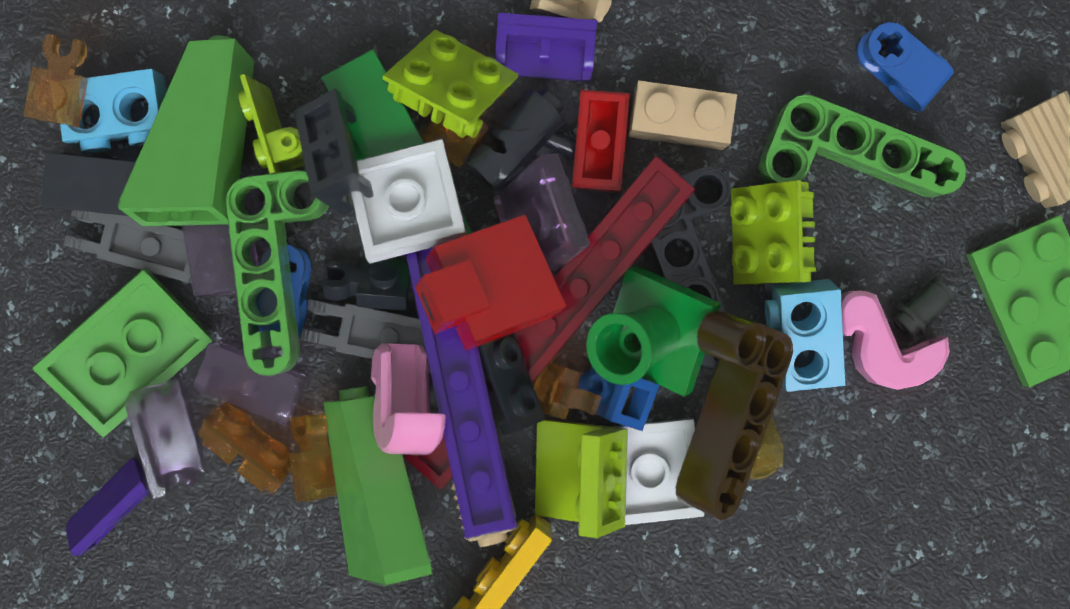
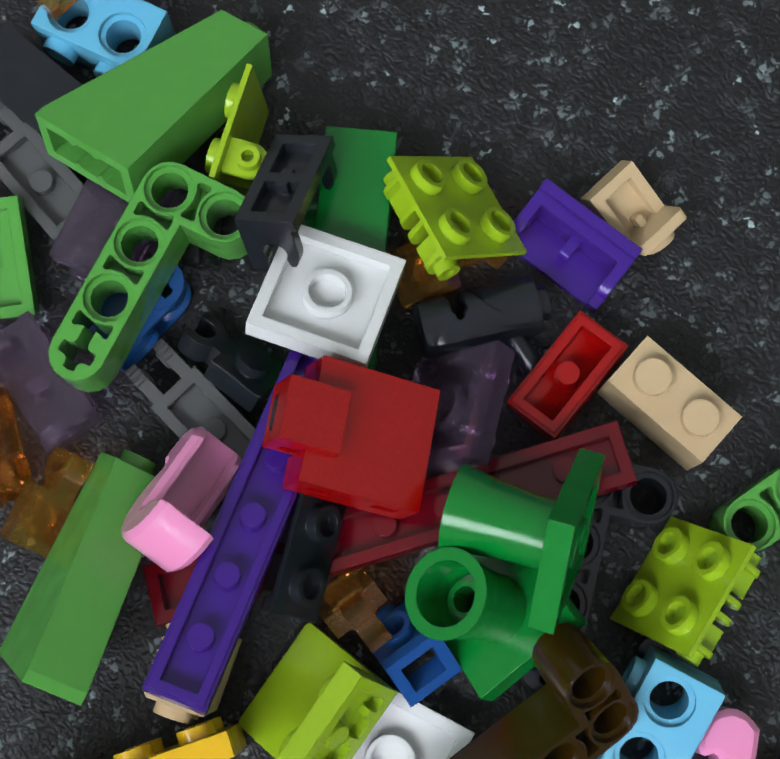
camera: 30 degrees right, 10 degrees down
(644, 270) = (527, 528): none -> green plant

